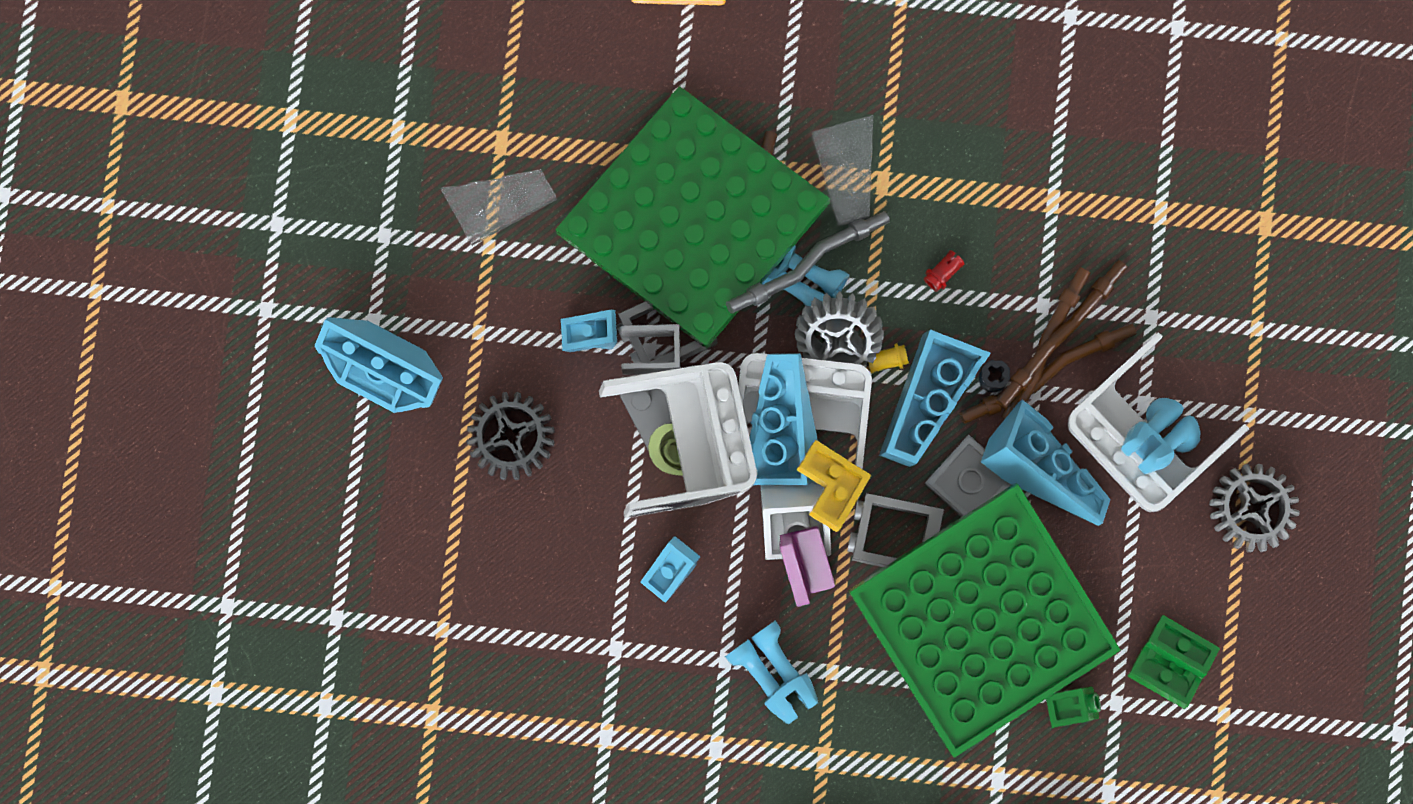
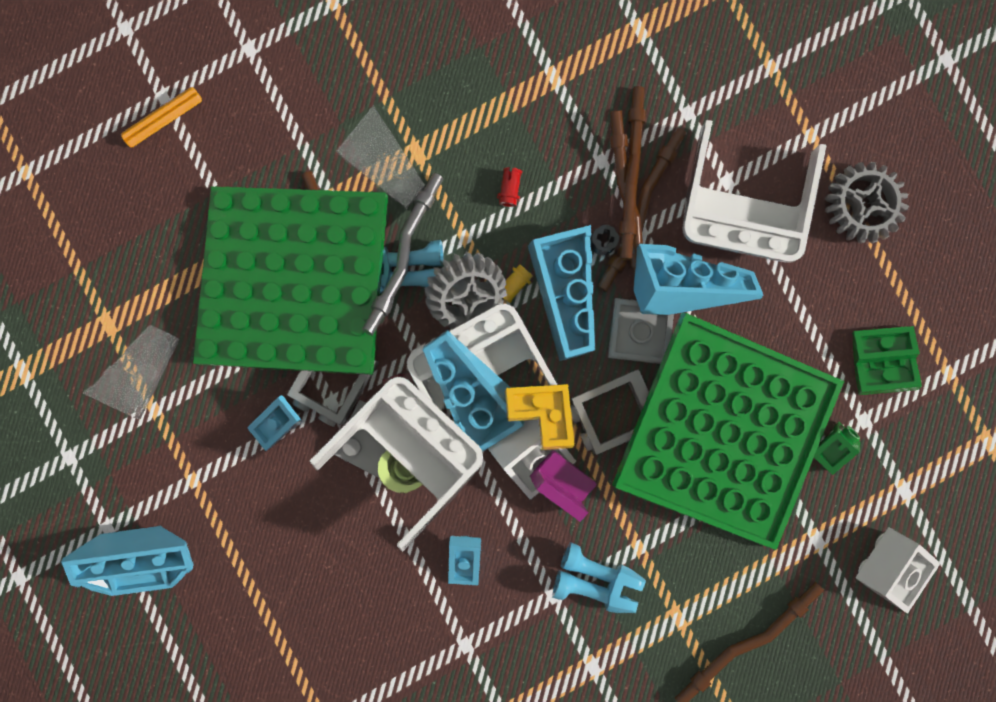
camera: 30 degrees left, 5 degrees up
(524, 429) = (258, 566): dark grey gear -> none
(652, 331) = (325, 388): light grey piece -> none
(1150, 446) = (758, 210): medium azure piece -> none

